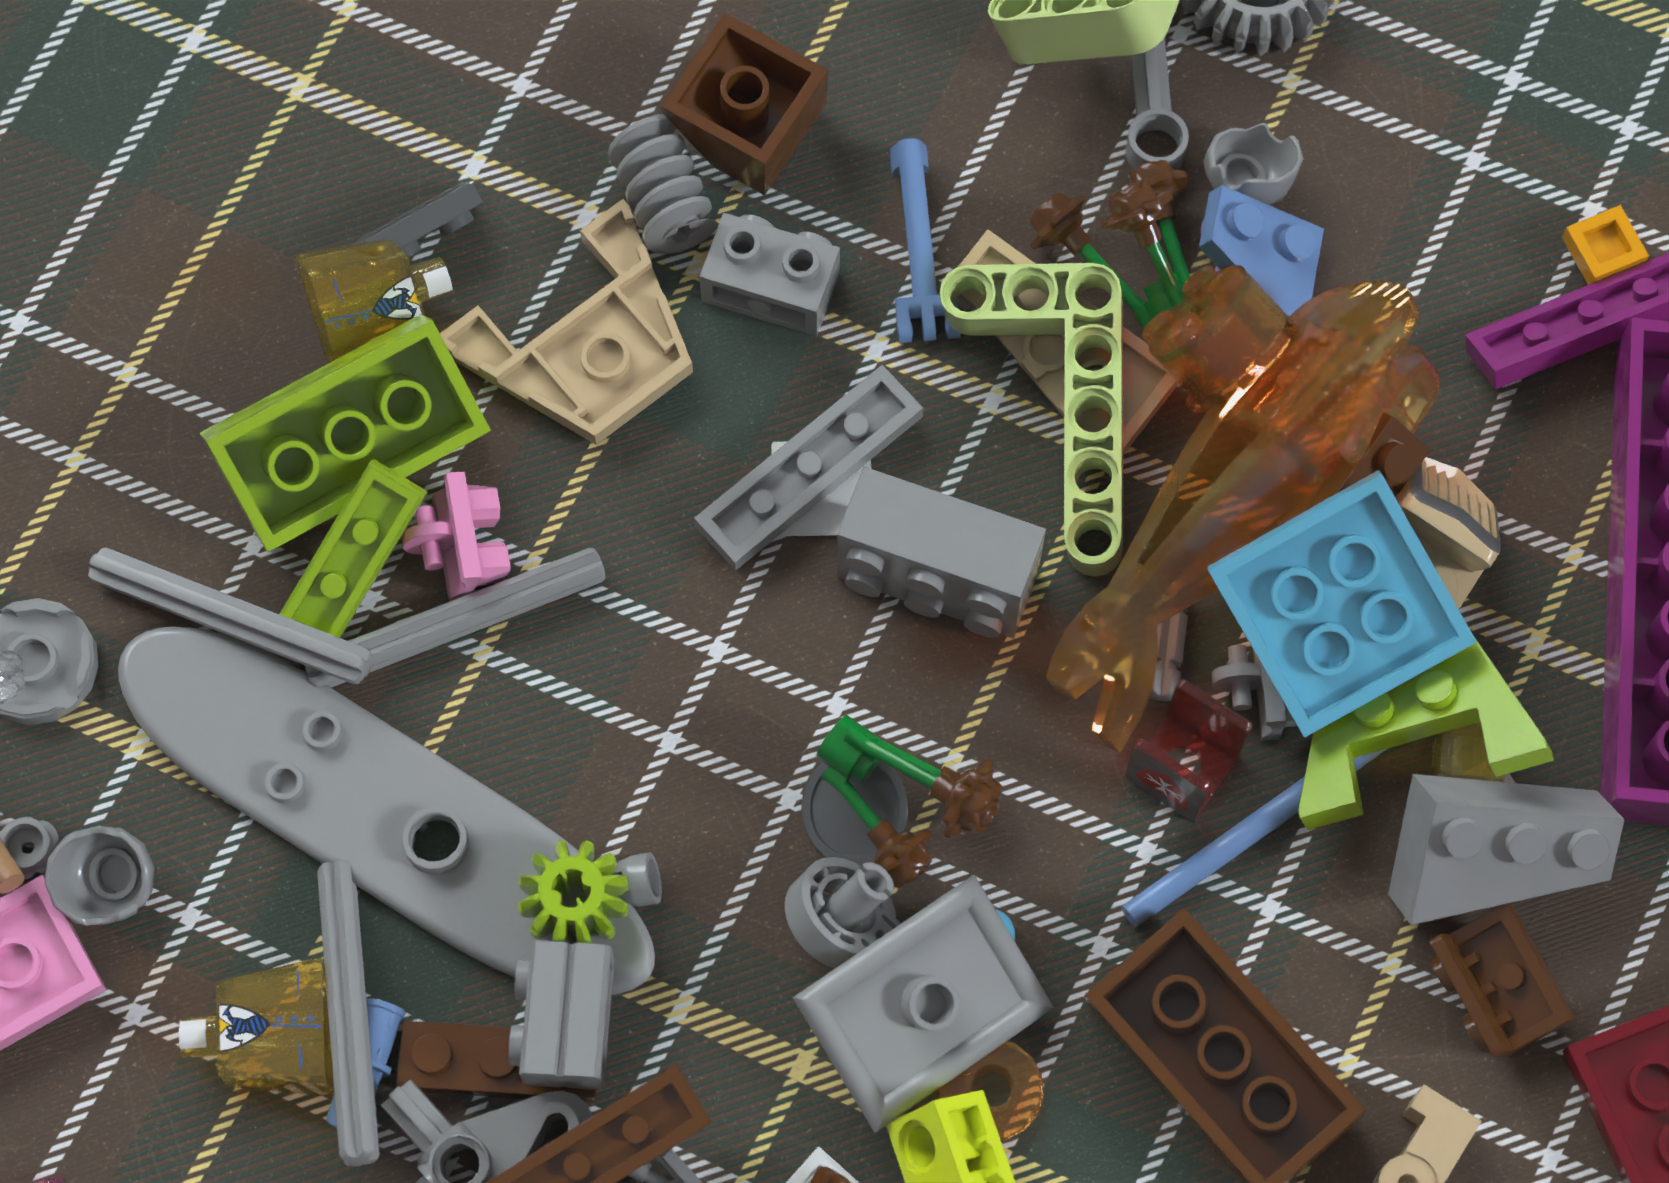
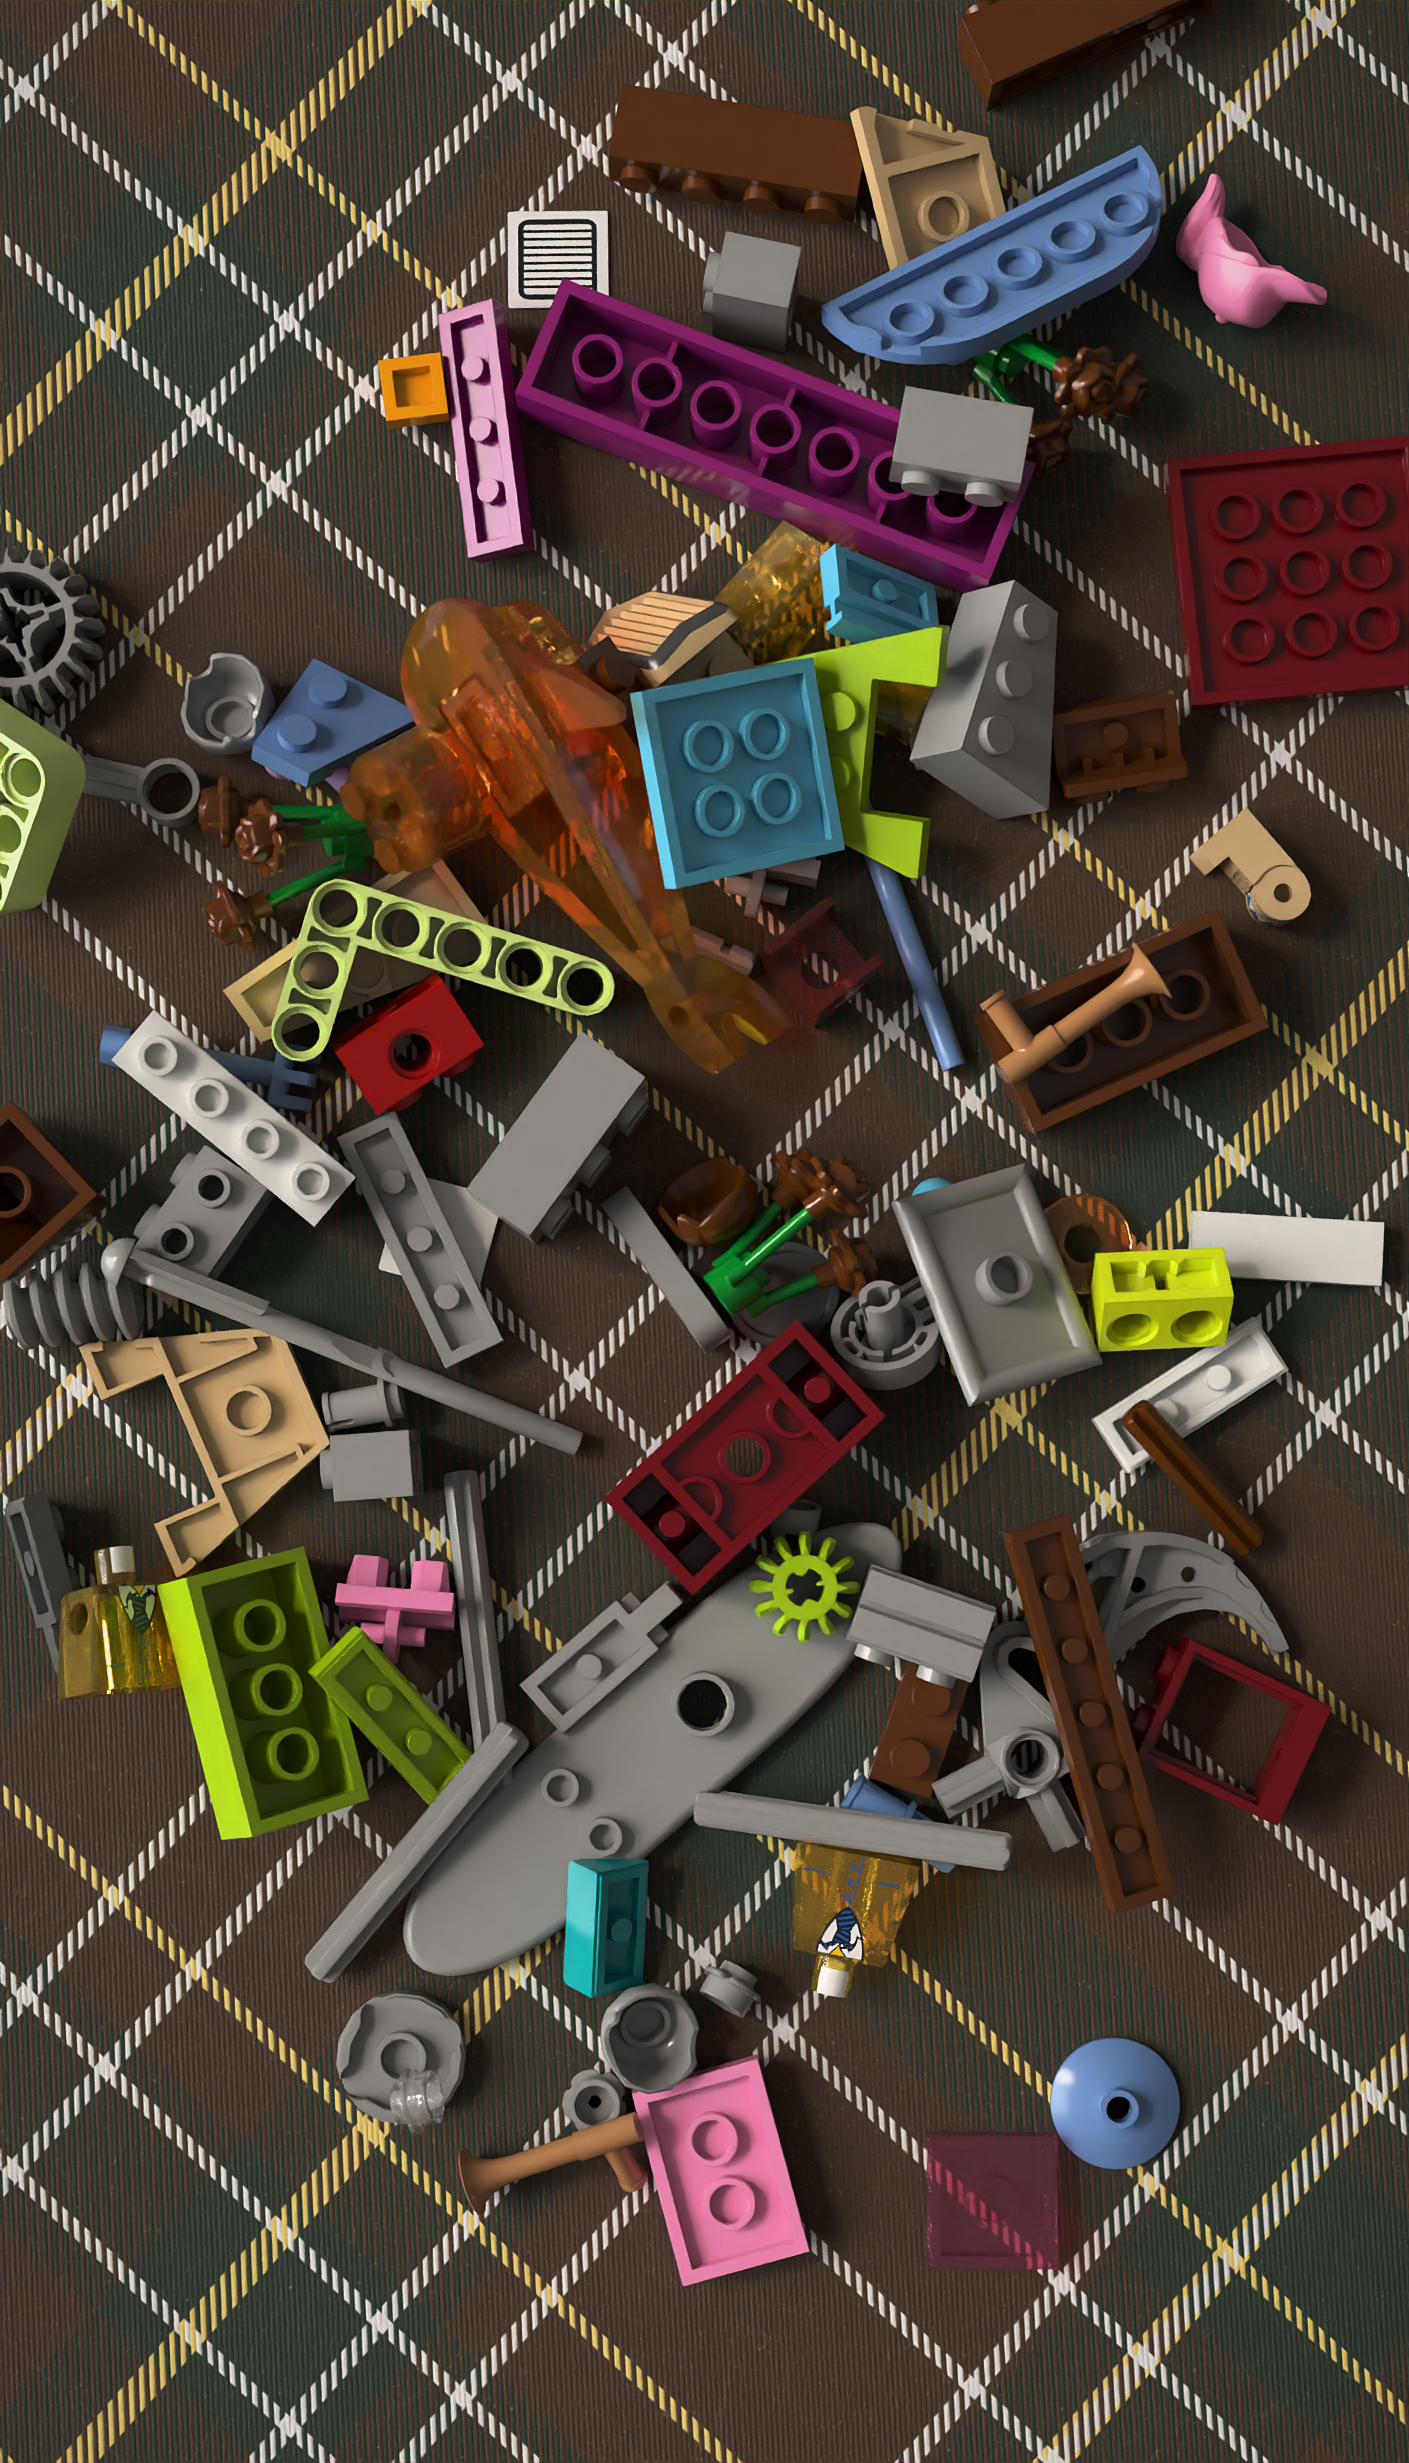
camera: 75 degrees left, 15 degrees up
(165, 944) = (730, 1988): none -> light grey plate
(200, 810) = (605, 1925): none -> teal slope
(460, 736) = (601, 1656): none -> light grey hinge
(583, 473) = (373, 1465): none -> light grey brick
(645, 472) = (363, 1406): none -> light grey pin
(711, 202) = (123, 1259): none -> light grey bar
(738, 842) = (704, 1514): none -> dark red plate
(846, 692) = (666, 1269): none -> light grey beam
(872, 264) = (233, 1117): none -> white brick
(921, 715) = (710, 1203): none -> reddish brown hair
(1024, 410) = (370, 1044): none -> red brick
(1162, 962) = (1035, 1051): none -> medium nougat piece
(1534, 626) = (778, 595): none -> clear yellow bracket
(1561, 697) = (873, 598): none -> medium azure plate

